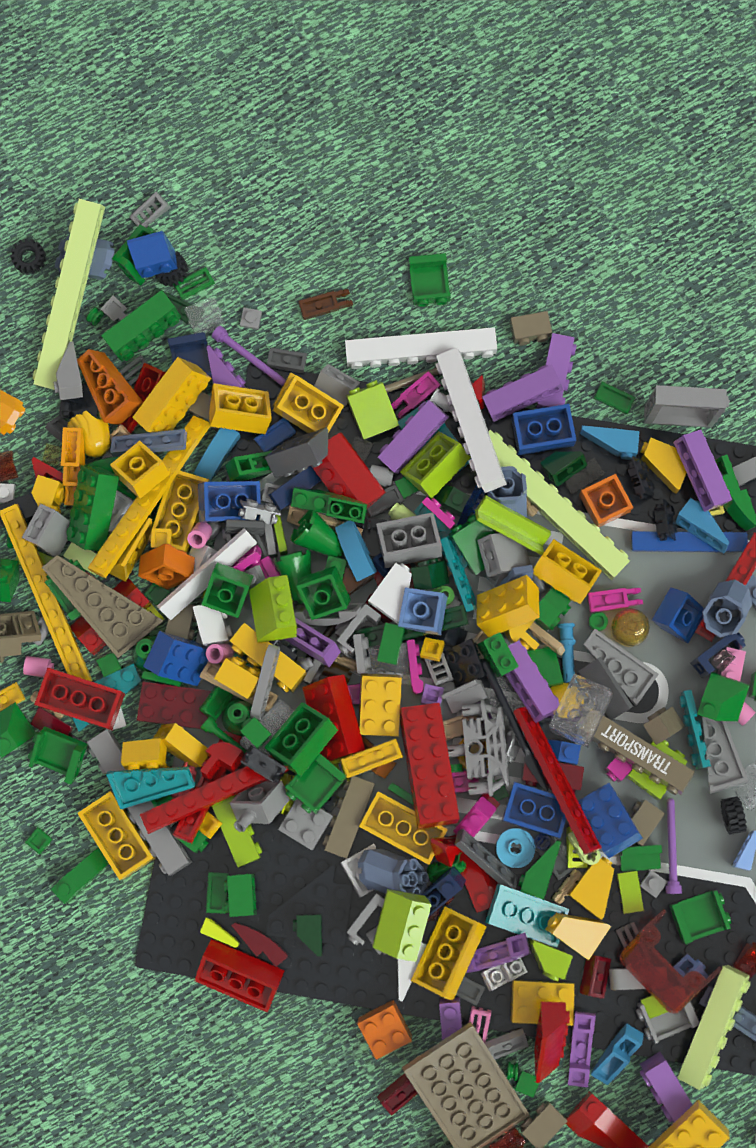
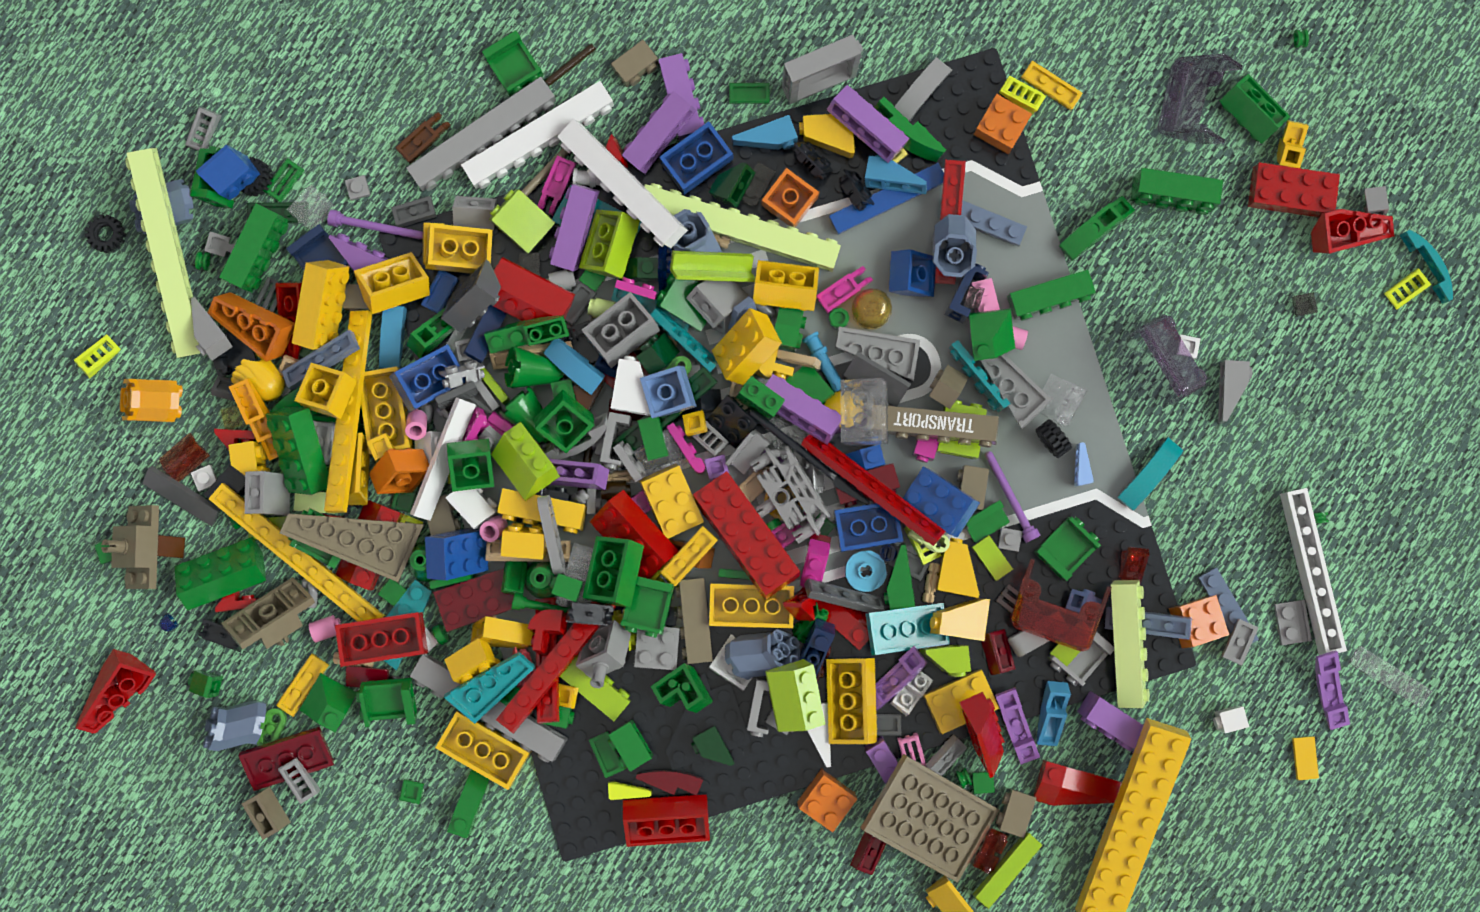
camera: 30 degrees left, 5 degrees up
(130, 720) = (440, 634): none -> green tile
(310, 865) = (682, 685): none -> green brick
(375, 324) = (481, 134): none -> light grey brick
(476, 303) = (570, 64): none -> dark brown bar

